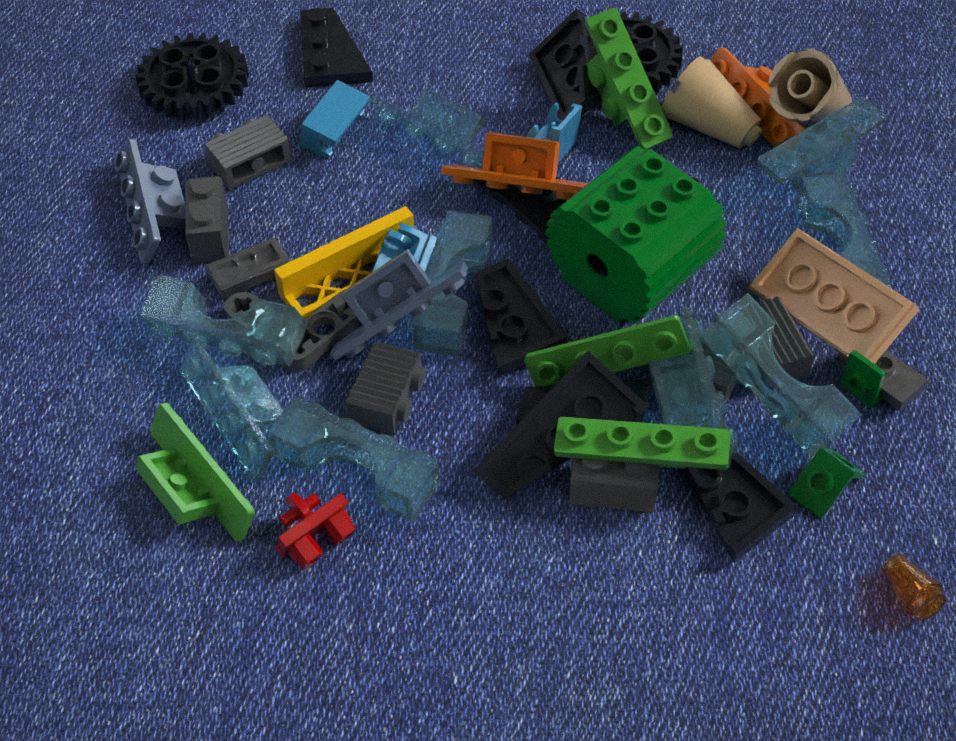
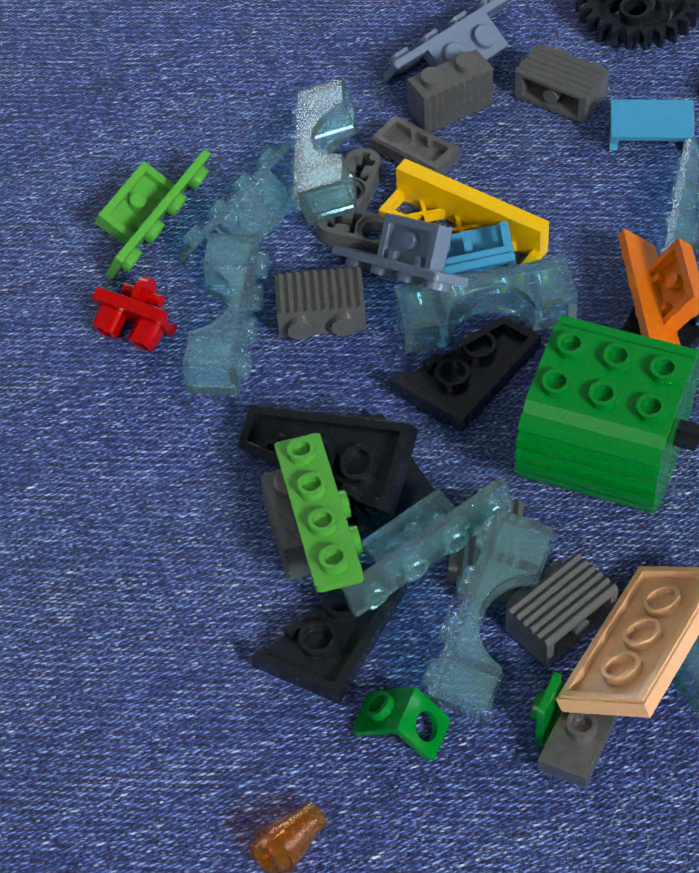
camera: 70 degrees right, 0 degrees up
(615, 349) = (446, 458): bright green bracket -> none

